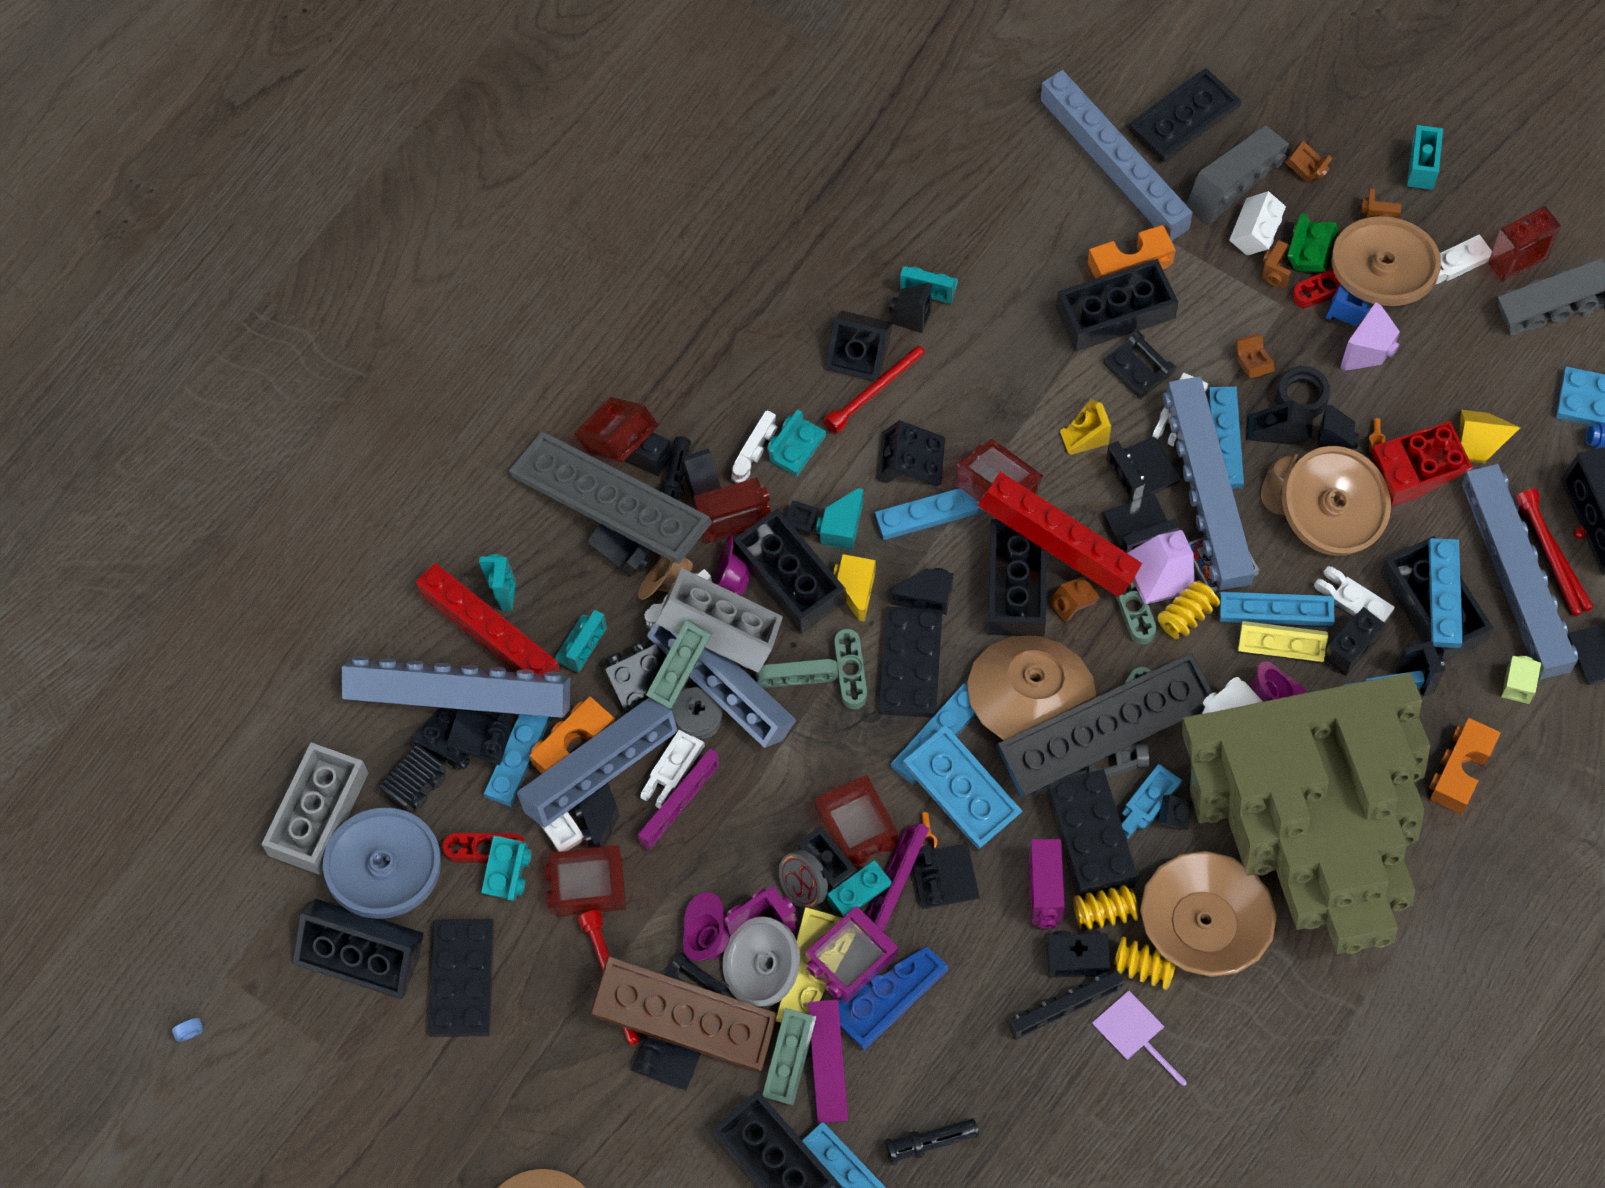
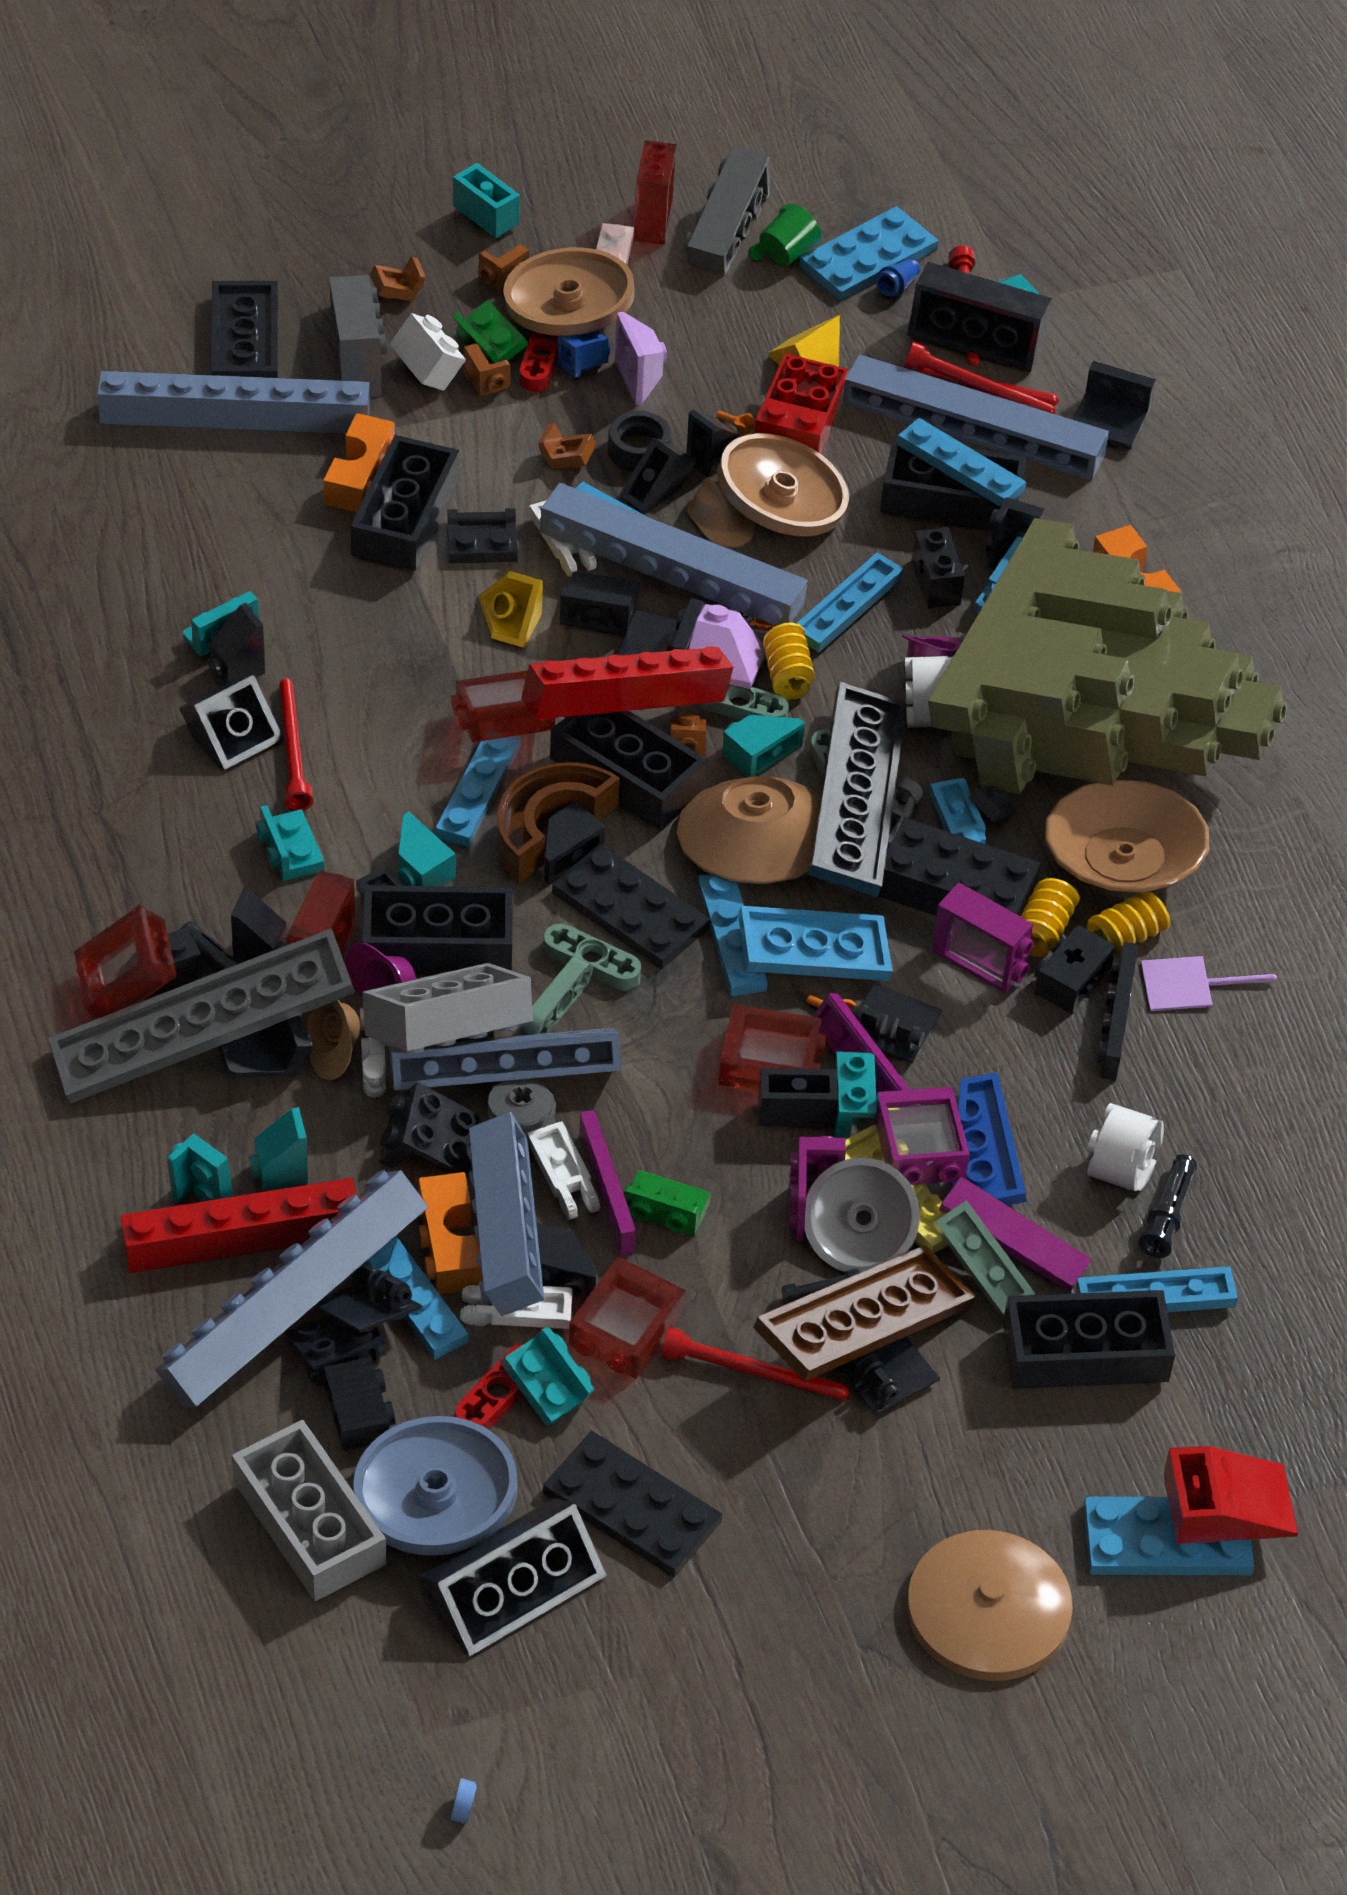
camera: 60 degrees left, 15 degrees down
(553, 612) = (281, 1153): none -> teal slope
(582, 641) = (339, 1149): teal bracket -> none
(679, 664) = (470, 1064): sand green plate -> none
(696, 842) = (666, 1202): none -> green bracket
(705, 928) = (777, 1241): magenta piece -> none
(753, 448) = (258, 876): white hinge -> none
(802, 879) = (795, 1116): dark grey tile -> none
(857, 577) = (499, 871): yellow slope -> none
(911, 453) = (394, 759): black bracket -> none
(933, 550) = (535, 798): none -> reddish brown brick
(945, 1083) = (1125, 1147): none -> white brick
(1106, 642) = (761, 742): none -> teal slope
(1283, 641) = (887, 617): light yellow plate -> none
(1352, 596) = (891, 543): white hinge -> none
(1521, 679) = (1086, 484): yellowish green brick -> none
(1570, 346) = (787, 236): none -> green hat

